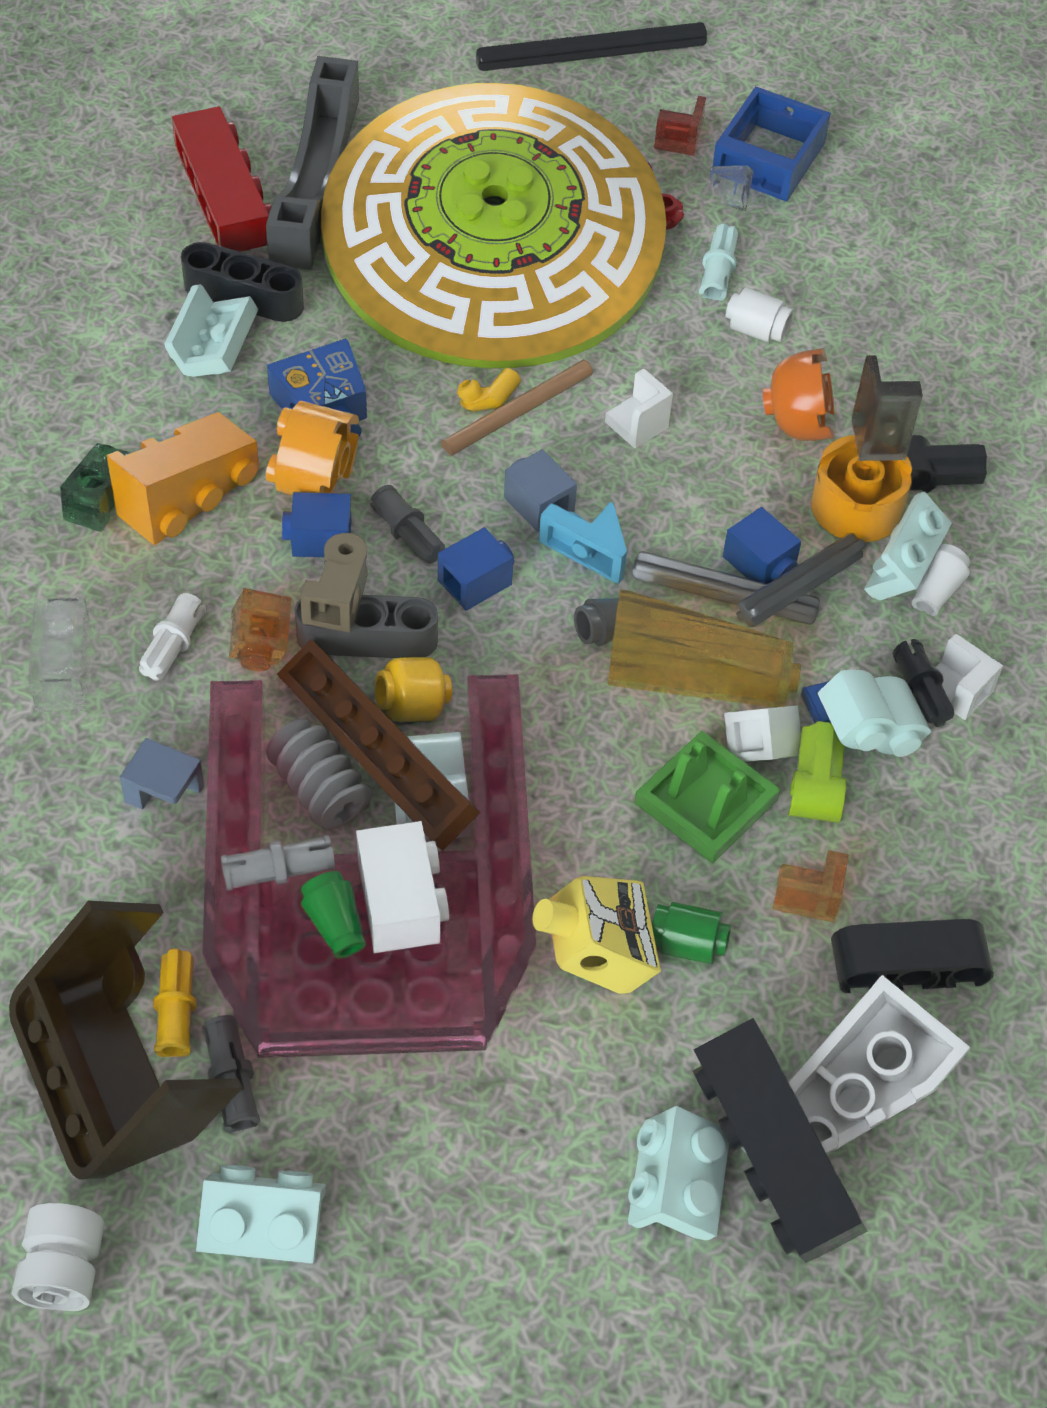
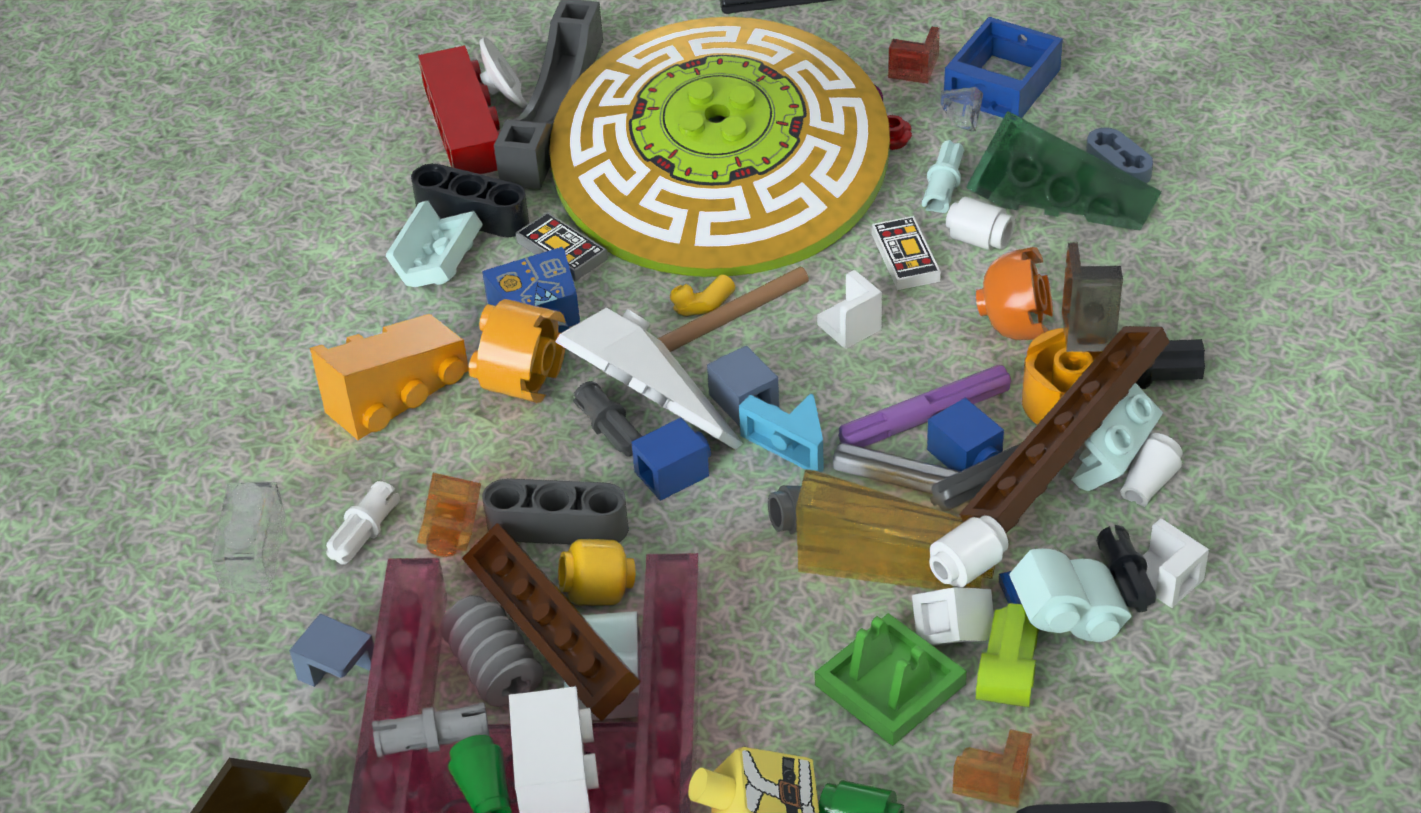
camera: 10 degrees right, 10 degrees down
(88, 490) = (296, 391): clear green leg -> none
(258, 140) = (499, 74): none -> white dish
(315, 520) = (519, 418): blue brick -> none
(327, 323) = (551, 233): none -> tile
(337, 595) = (527, 470): dark tan leg -> none
(437, 464) = (644, 363): none -> white wedge
(687, 345) = (905, 253): none -> tile
(718, 513) = (924, 406): none -> medium lavender axle
(780, 672) = (968, 551): none -> white brick
(824, 262) = (1048, 173): none -> clear green wedge
(864, 545) = (1067, 426): none -> reddish brown plate
(887, 244) = (1122, 154): none -> sand blue beam

